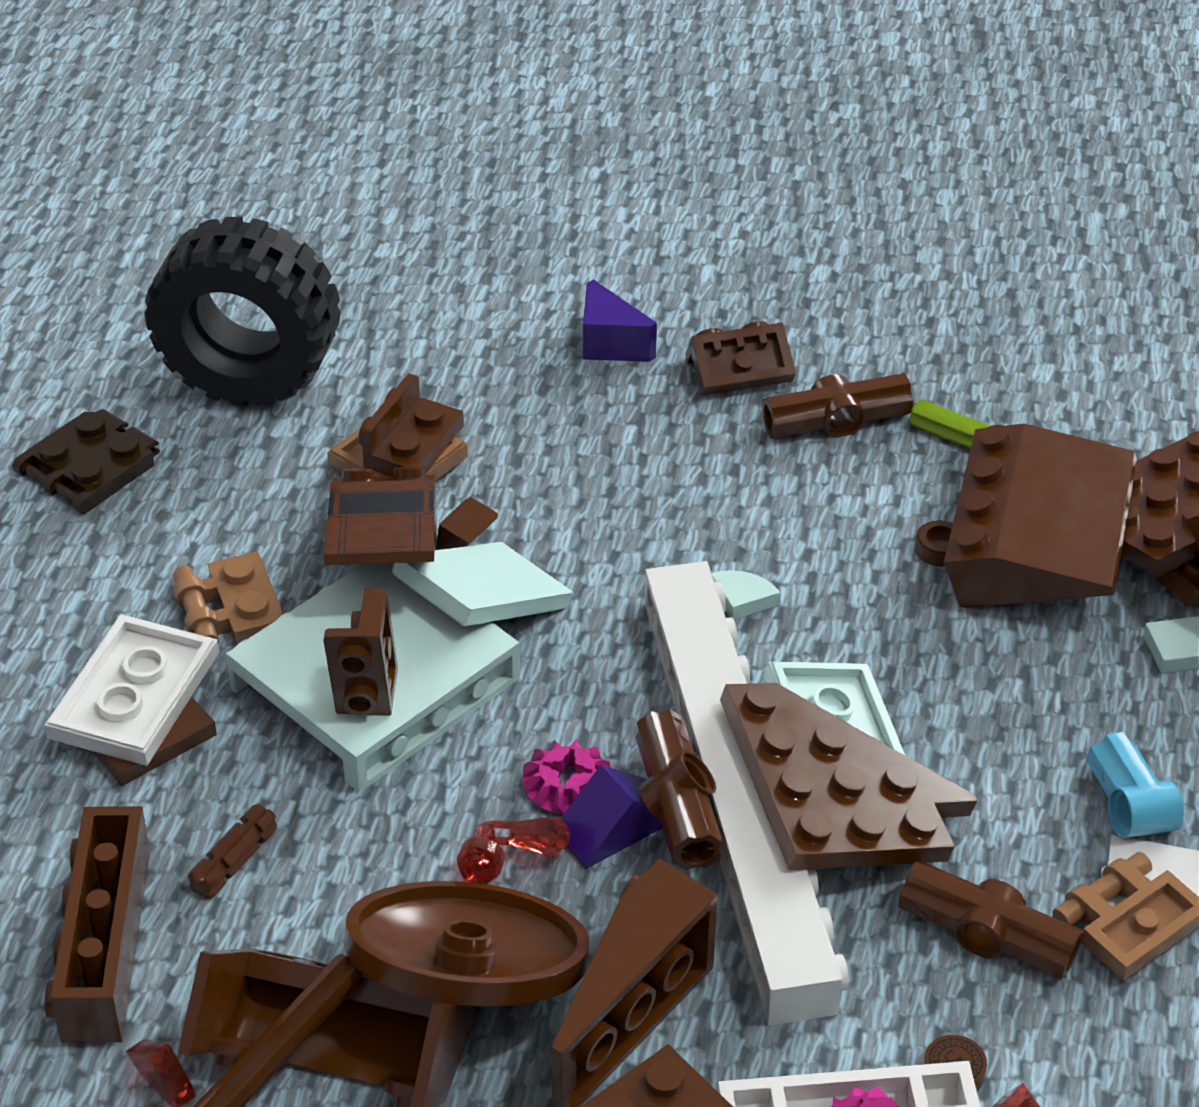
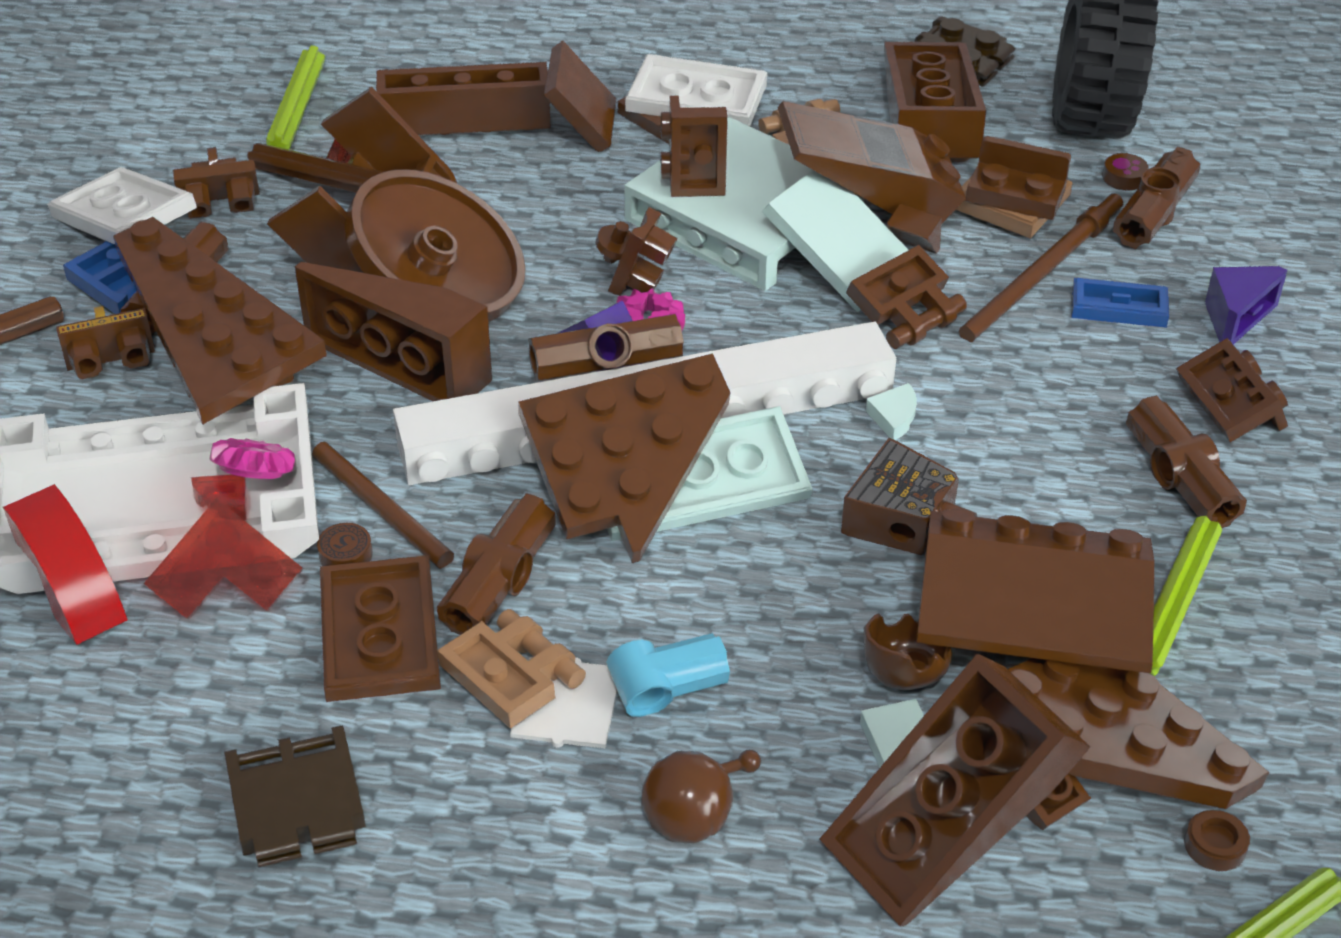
camera: 85 degrees right, 0 degrees up
(136, 793) = (580, 97): none -> reddish brown tile
(214, 479) = (936, 93): none -> reddish brown slope
(232, 851) = (552, 161): reddish brown axle -> none
(363, 369) = (1124, 171): none -> reddish brown tile
(432, 349) = (1156, 197): none -> reddish brown piece
(483, 858) = (575, 298): clear red piece -> none
(490, 755) = (630, 248): none -> reddish brown hips
(526, 457) = (1087, 225): none -> reddish brown bar
(577, 552) = (897, 286): none -> reddish brown plate
(578, 433) = (1120, 302): none -> blue tile
(891, 595) = (895, 498): none -> torso
(895, 1022) = (383, 505): none -> reddish brown bar
(1072, 1034) = (378, 629): none -> reddish brown tile
(1099, 622) = (898, 659): none -> reddish brown hair

